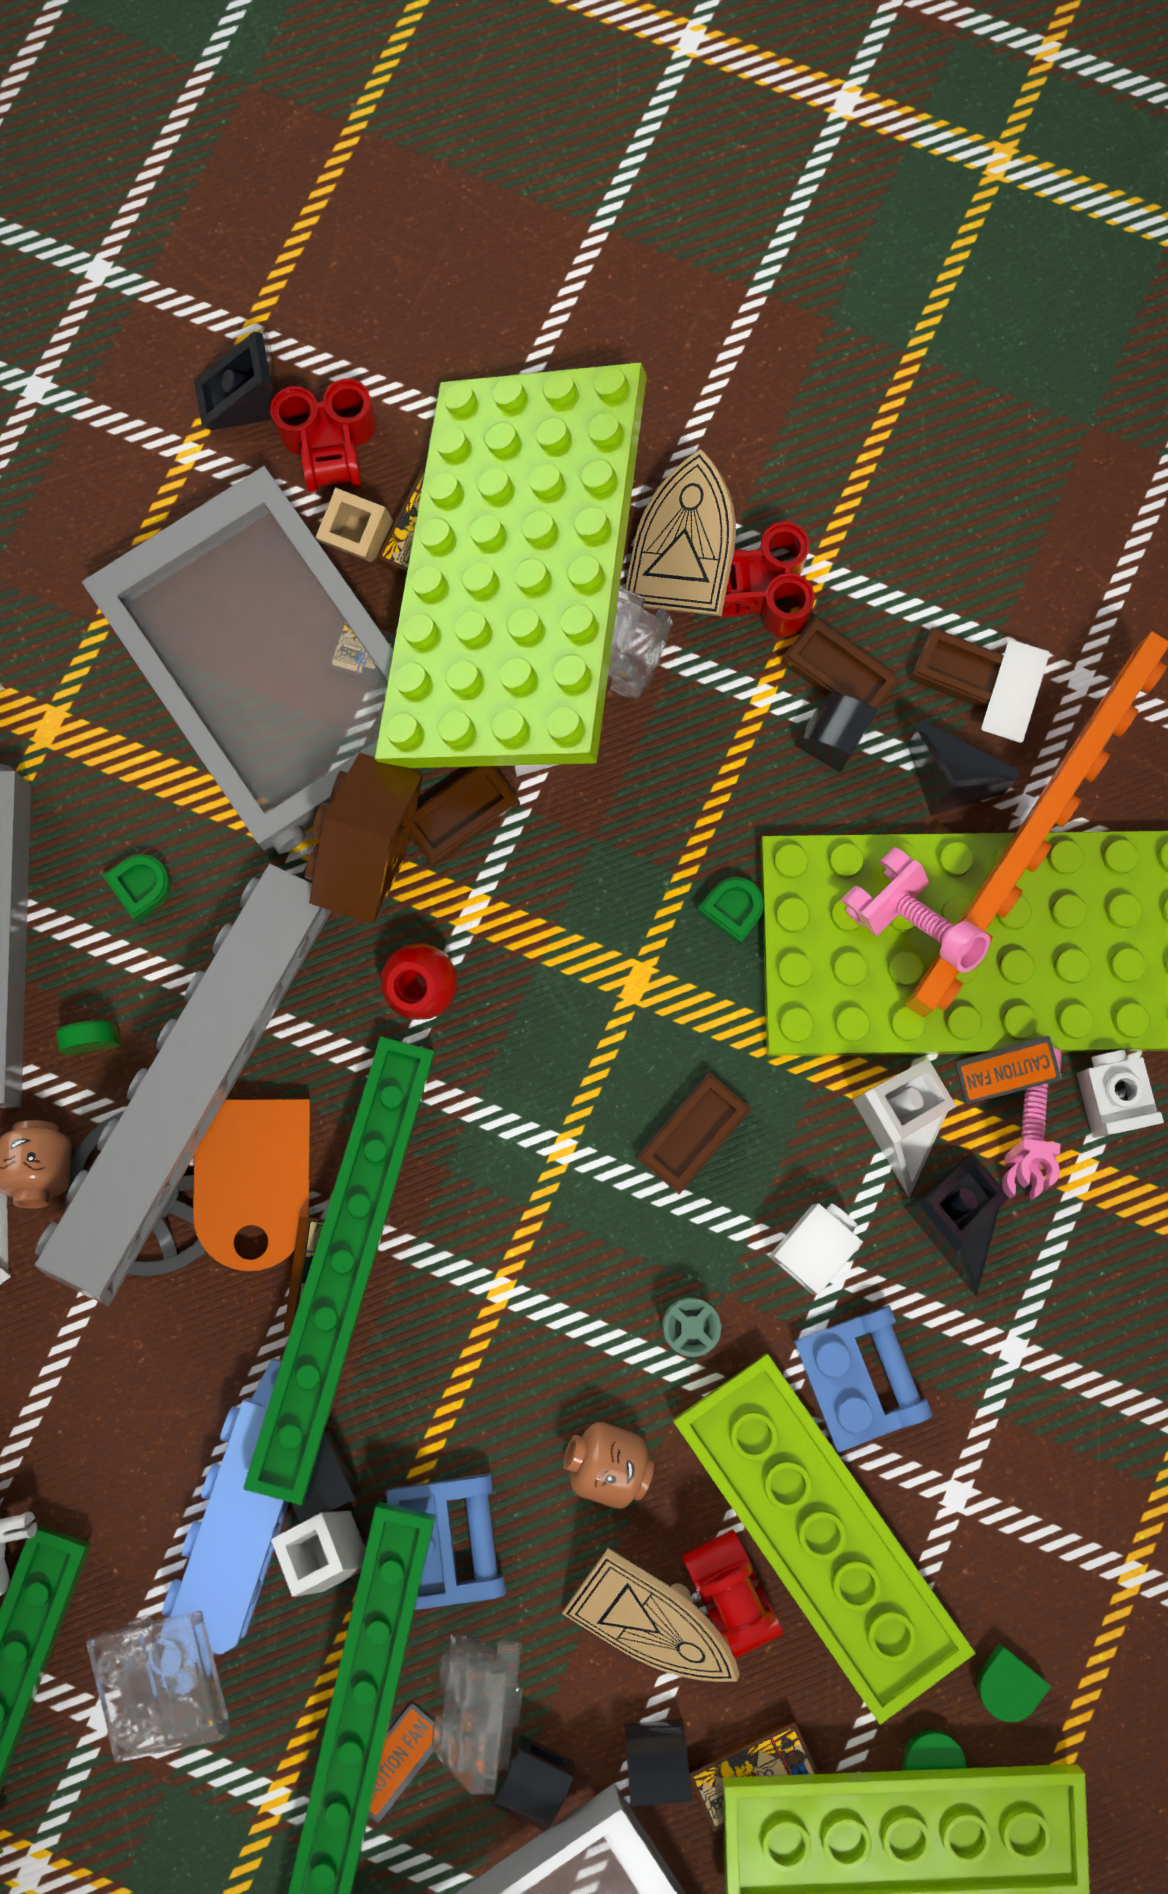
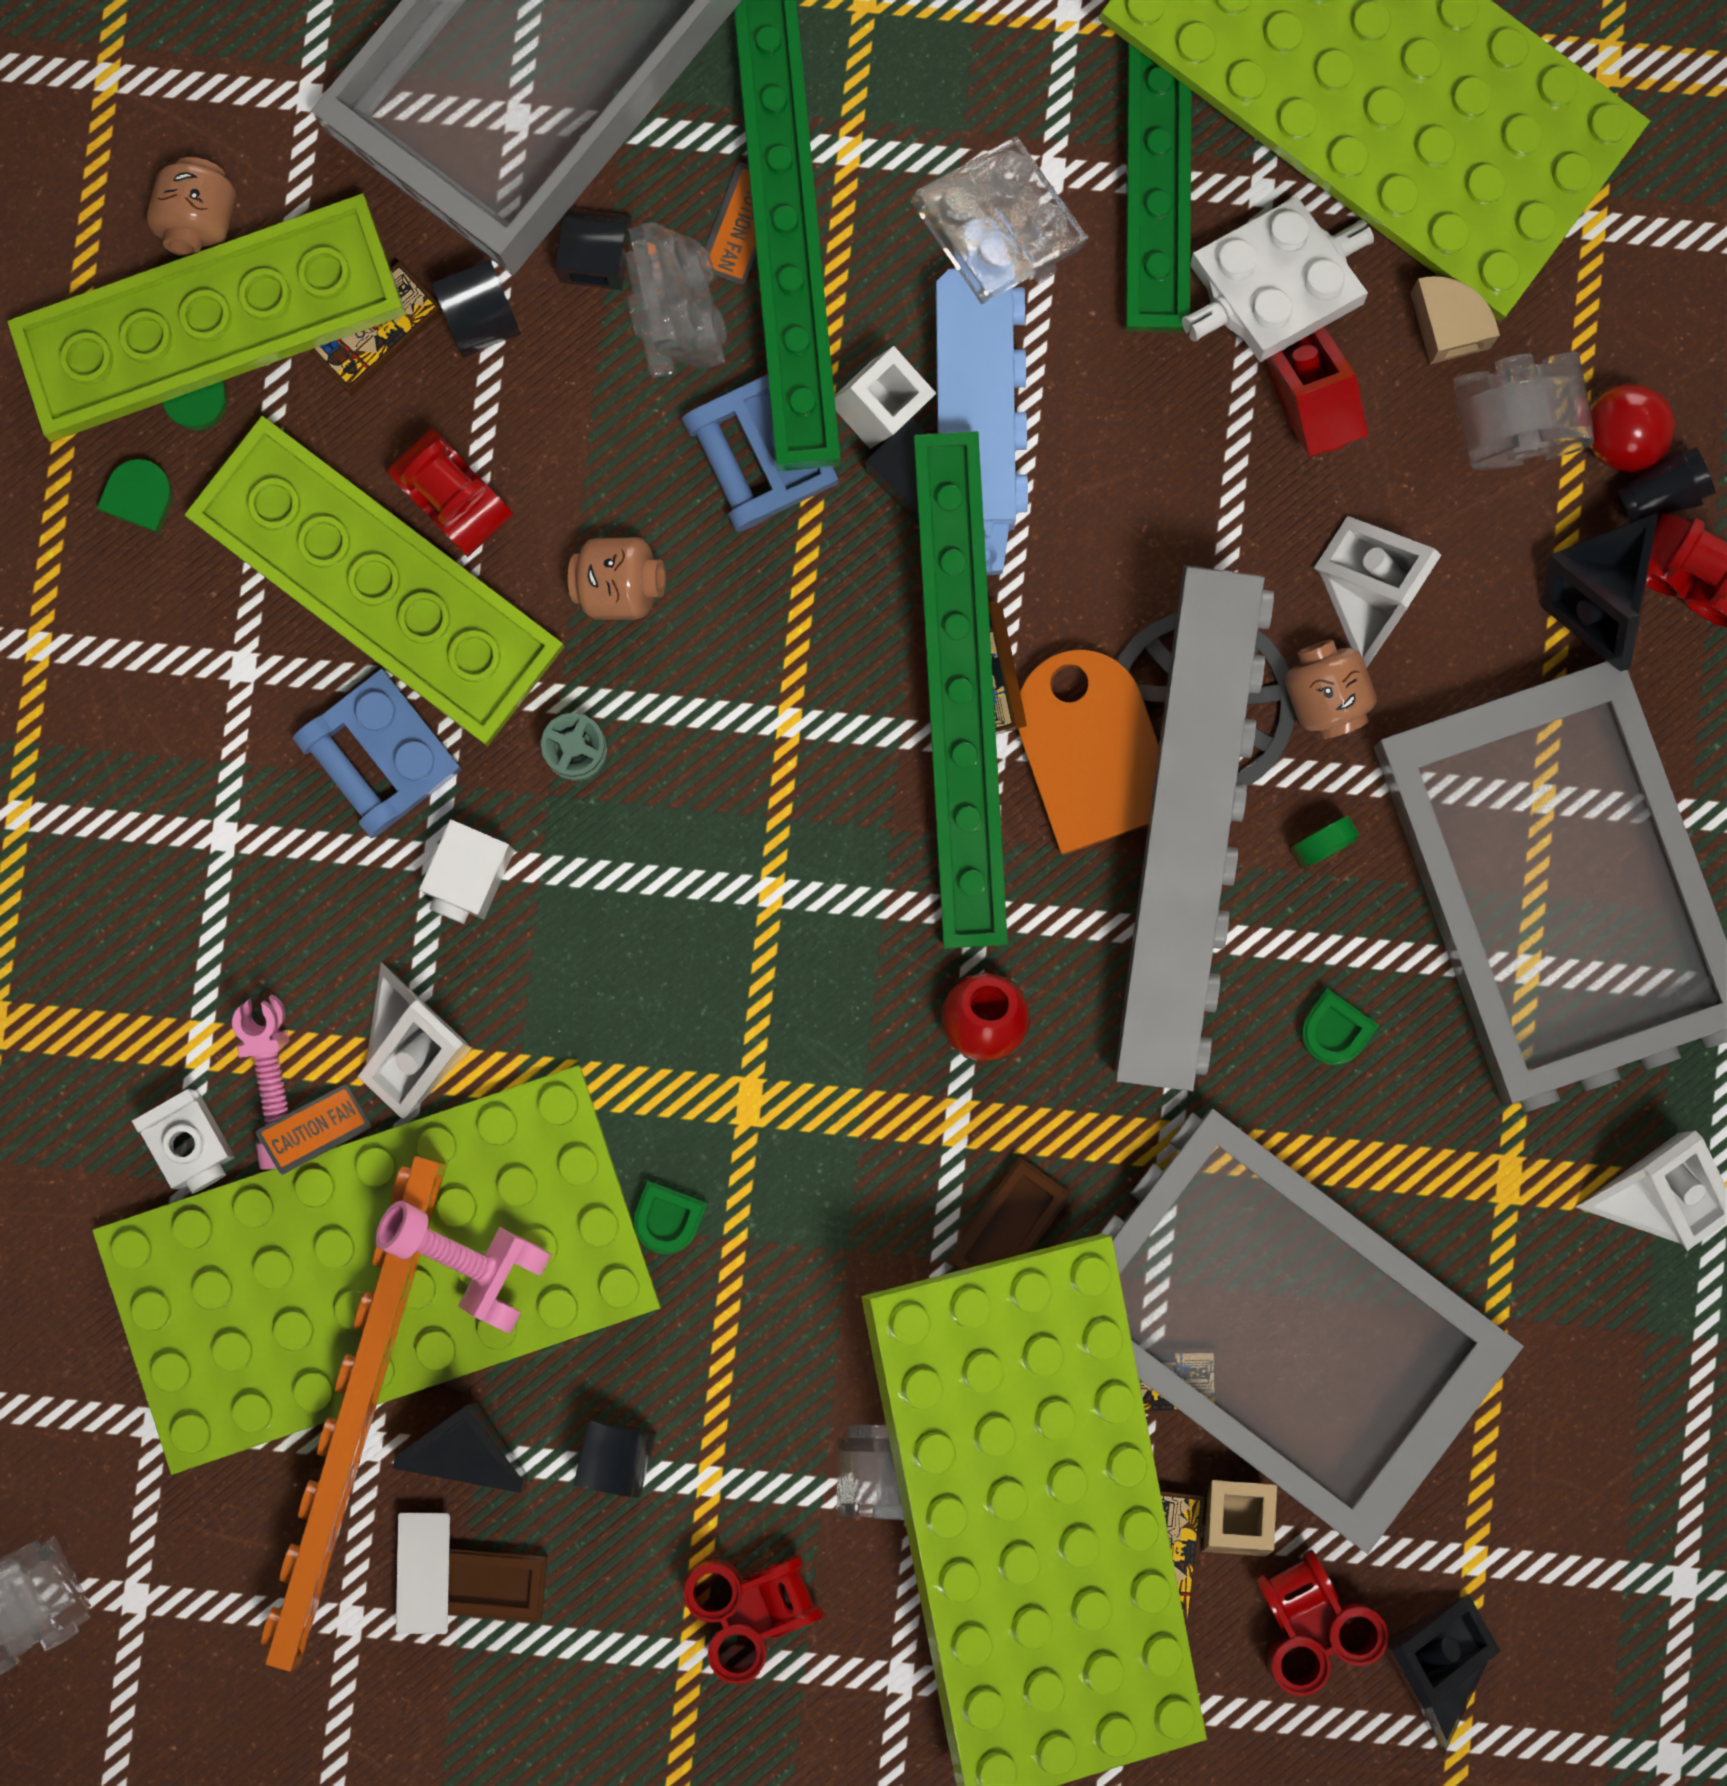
camera: 165 degrees right, 5 degrees up
(362, 837) = (1097, 1148): reddish brown brick -> none
(651, 1621) = (525, 439): tan shield -> none
(685, 541) = (854, 1624): tan shield -> none
(693, 1133) = (634, 953): reddish brown tile -> none
(839, 666) = (629, 1537): reddish brown tile -> none
(961, 1217) = (319, 959): black slope -> none

